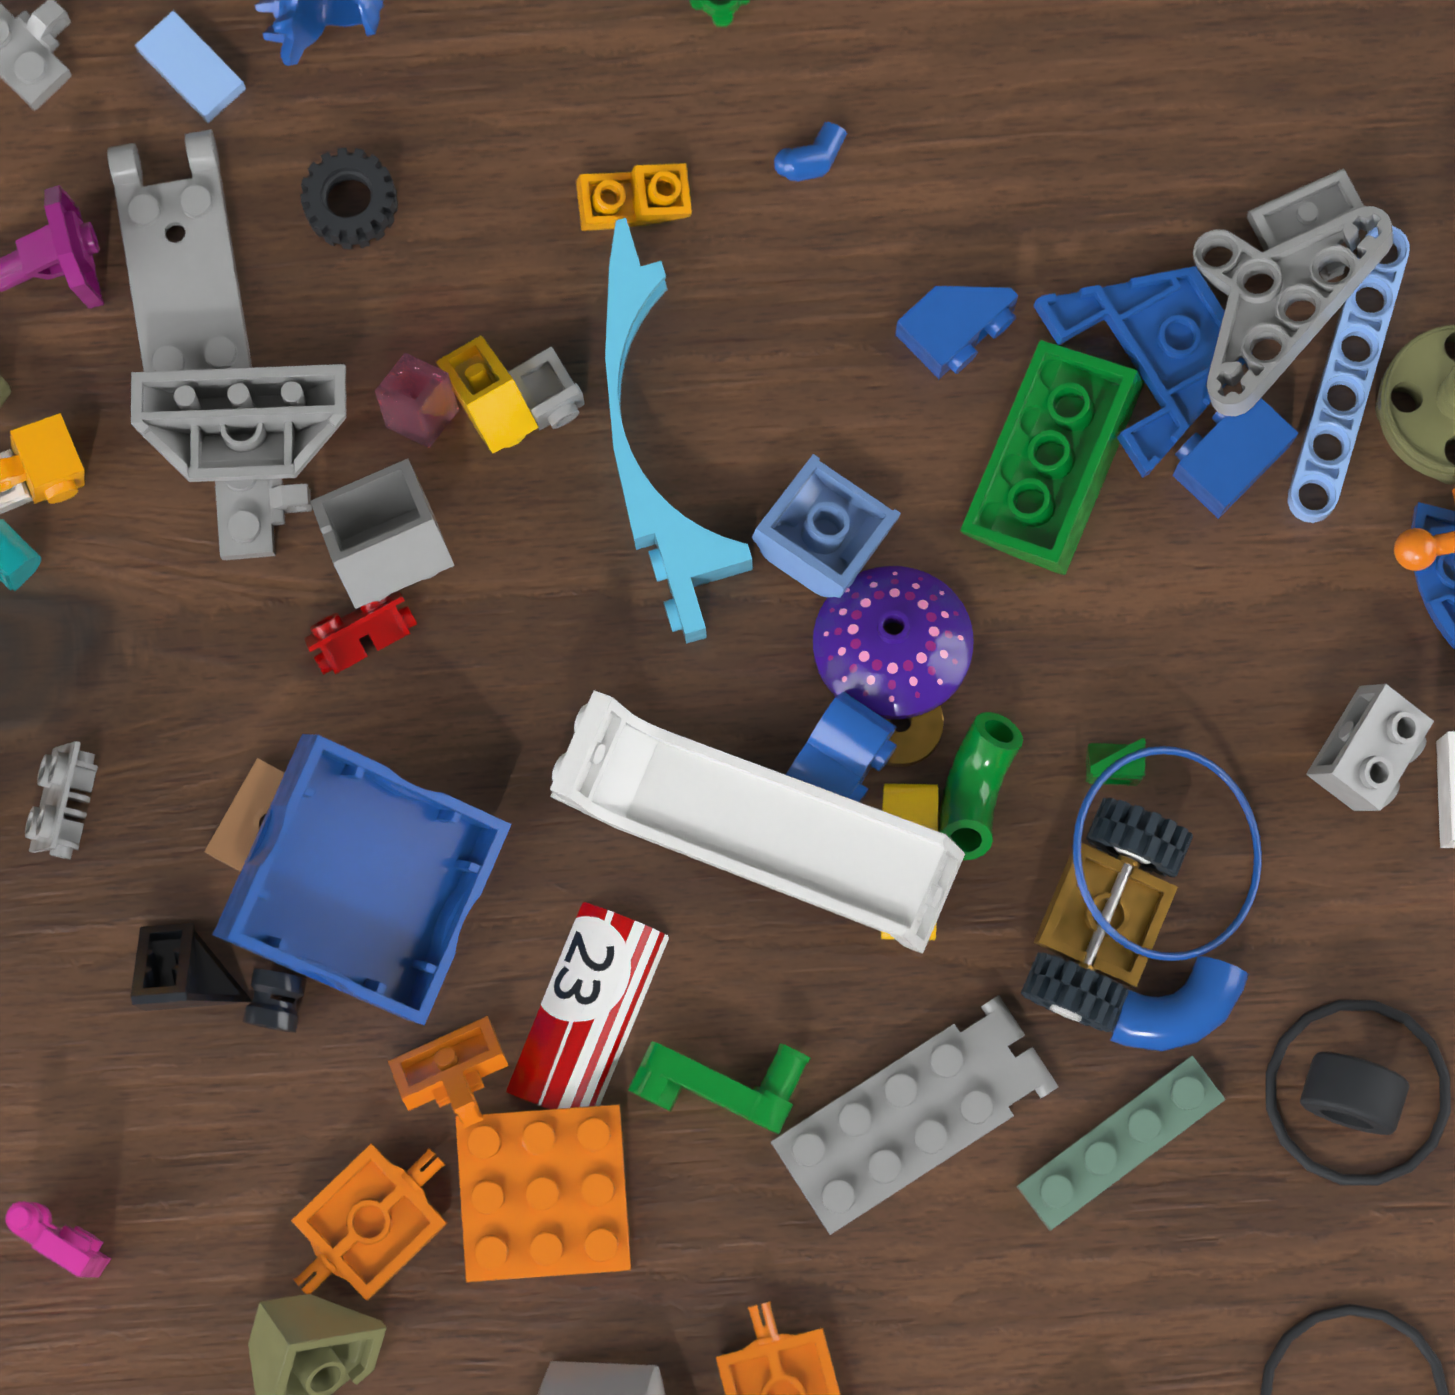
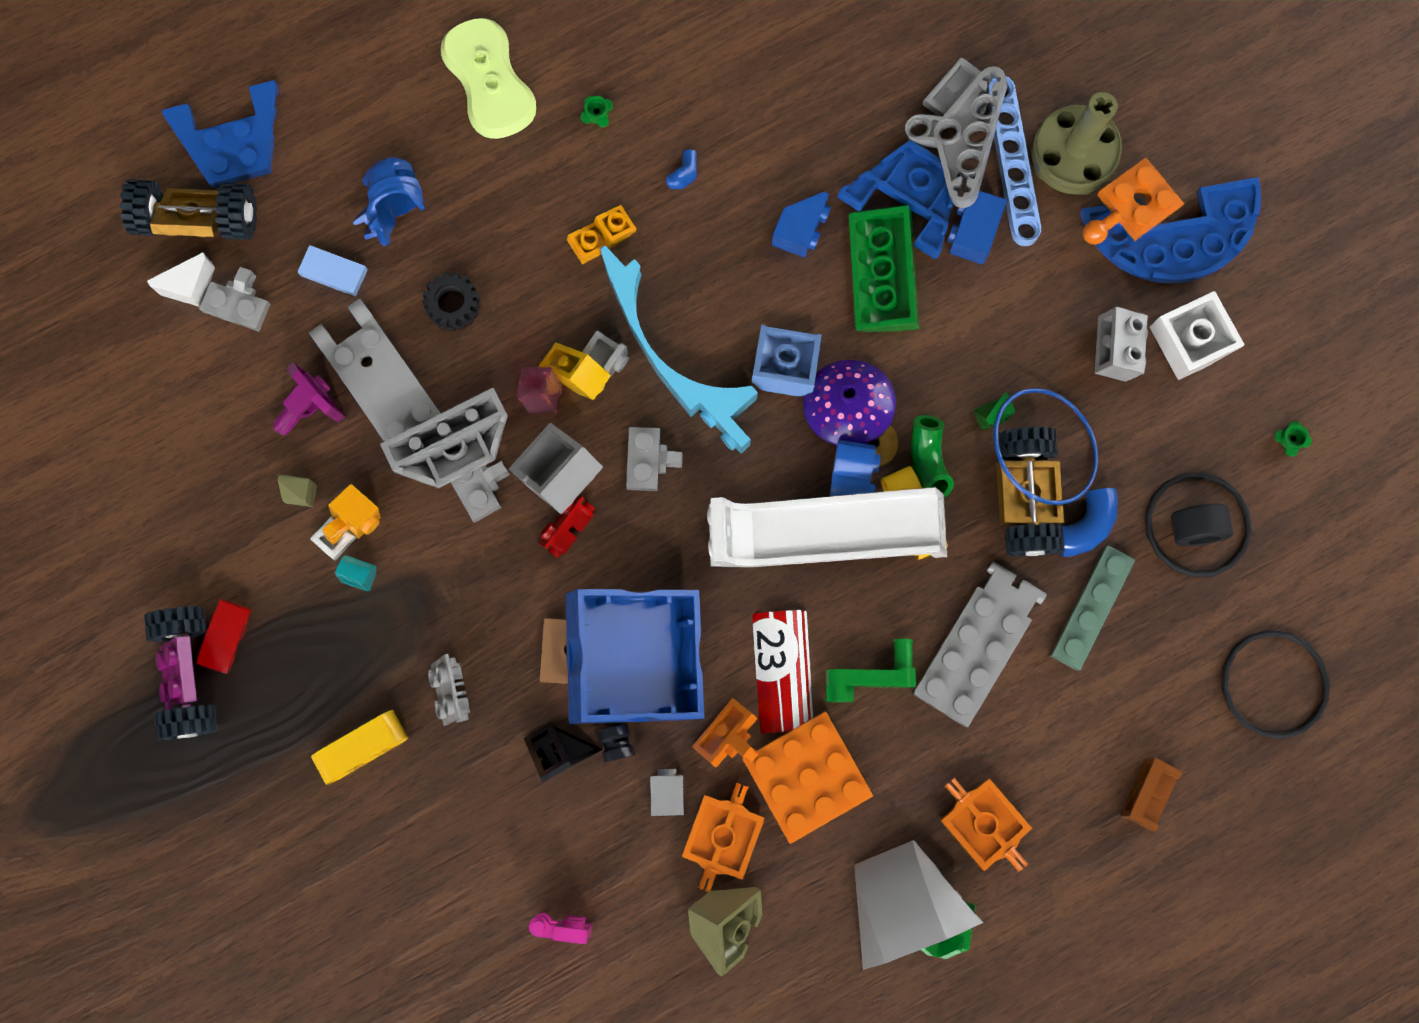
camera: 30 degrees left, 0 degrees up
(315, 1114) = (667, 793): none -> light grey brick
(536, 584) = (648, 459): none -> light grey hinge

